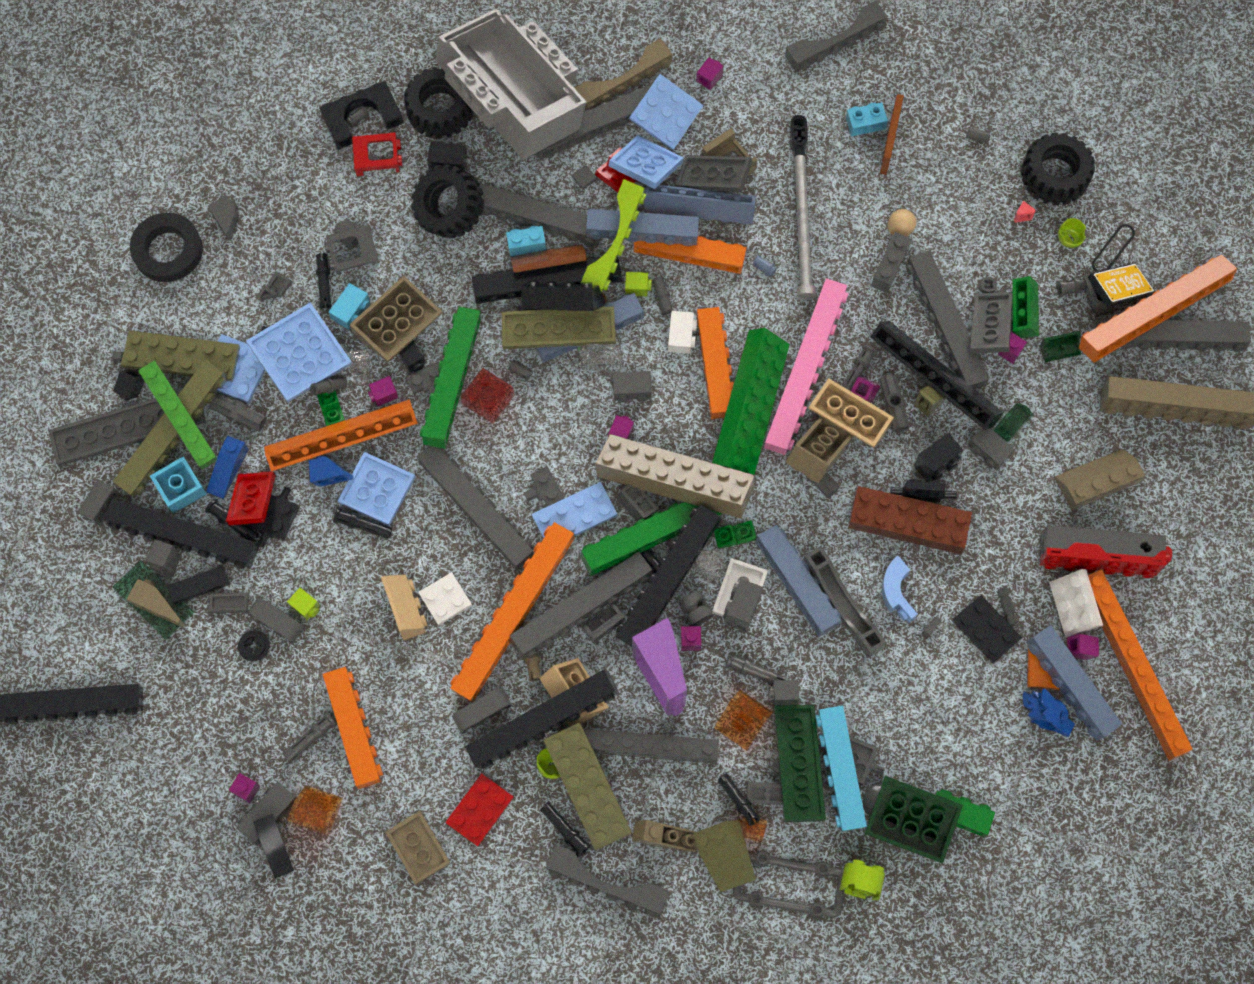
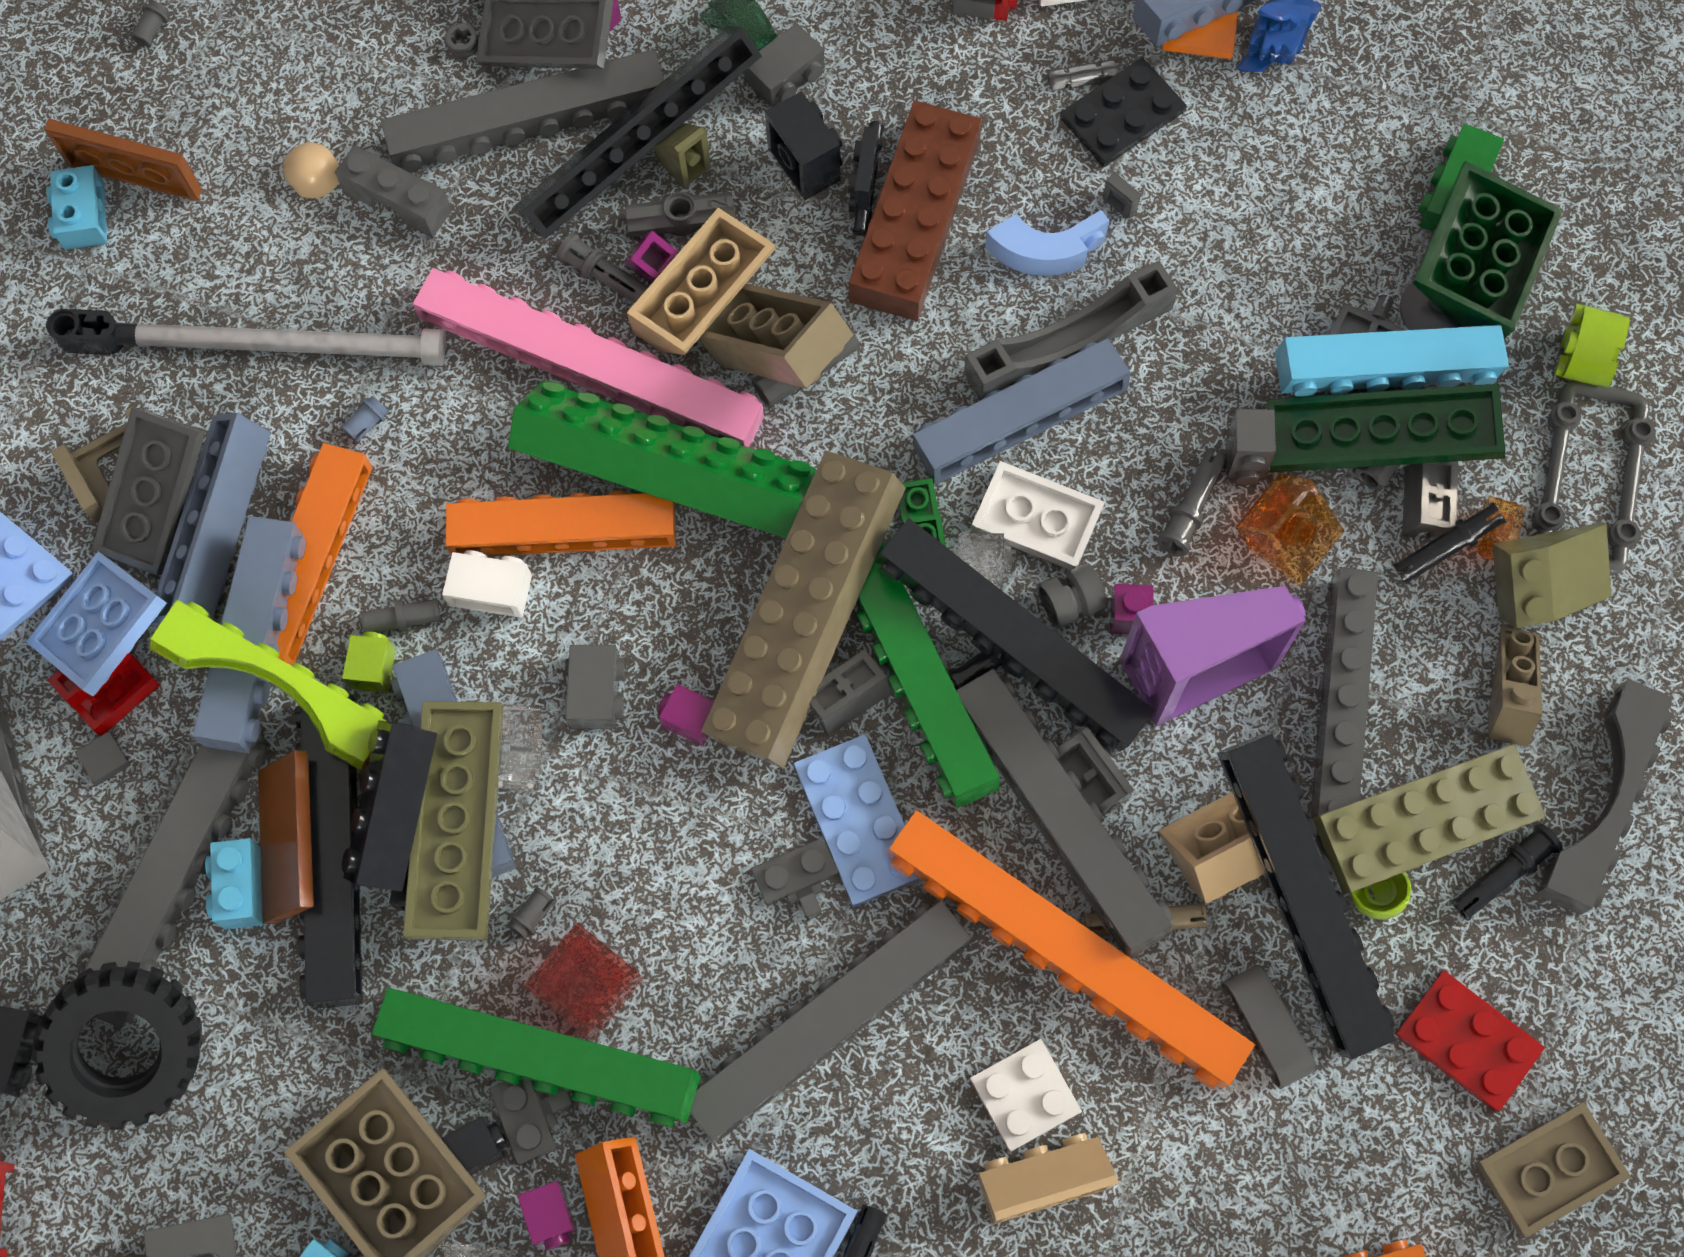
camera: 85 degrees left, 0 degrees up
(743, 605) = (1081, 498): dark grey brick -> none

